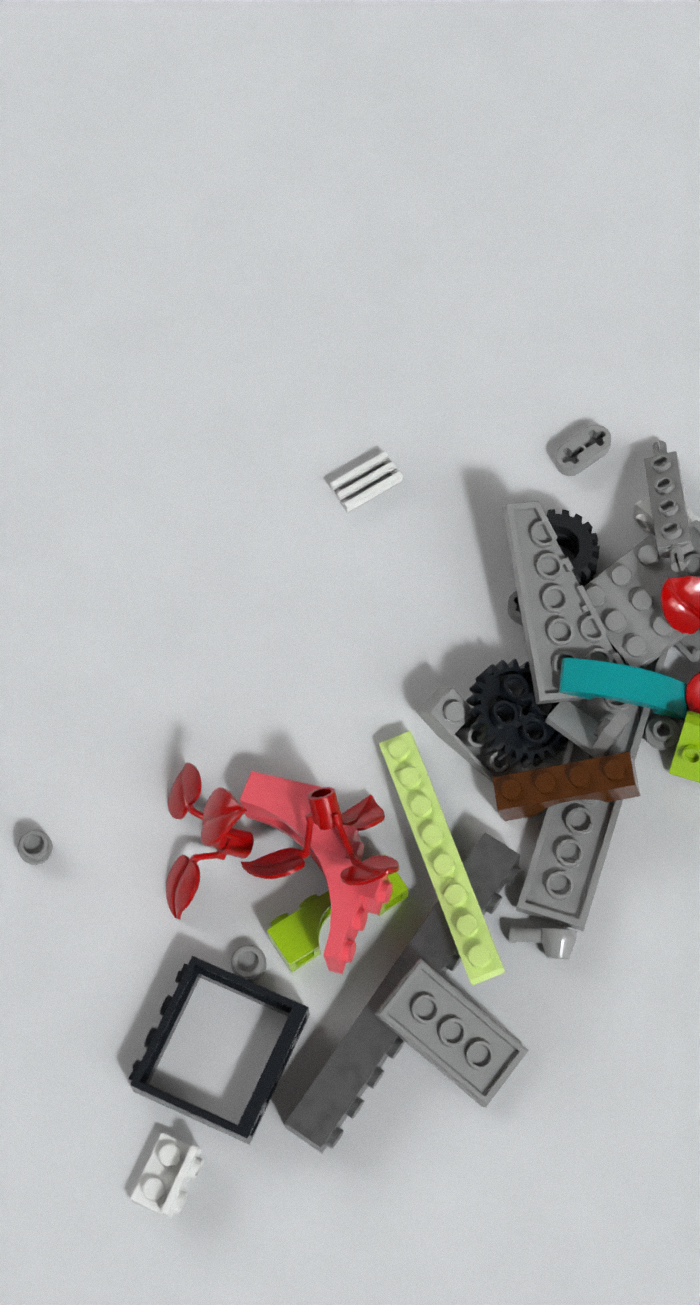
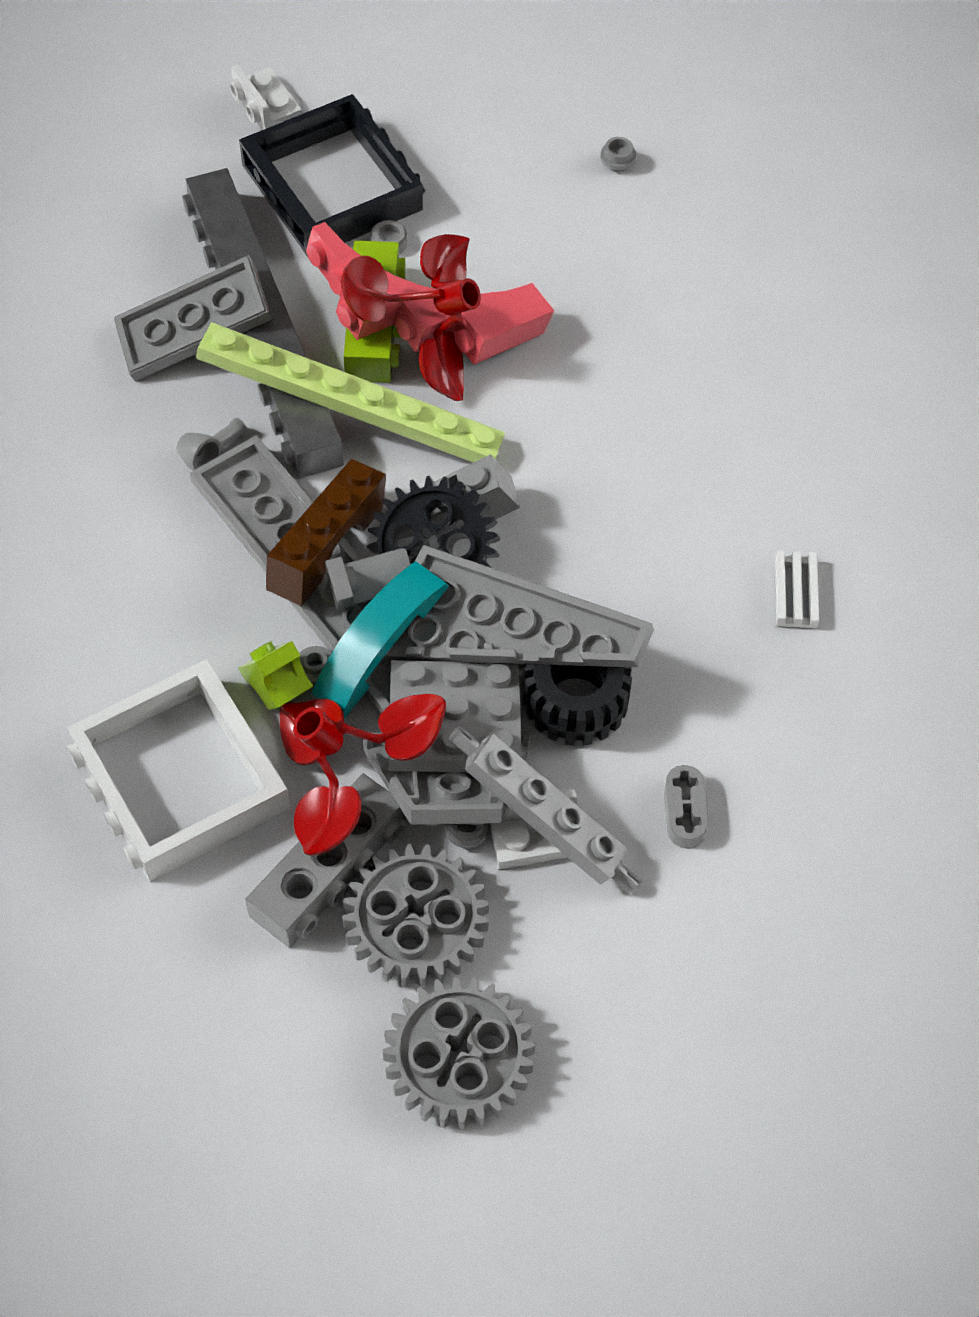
camera: 120 degrees right, 10 degrees down
(217, 831) = (505, 267): red plant -> none

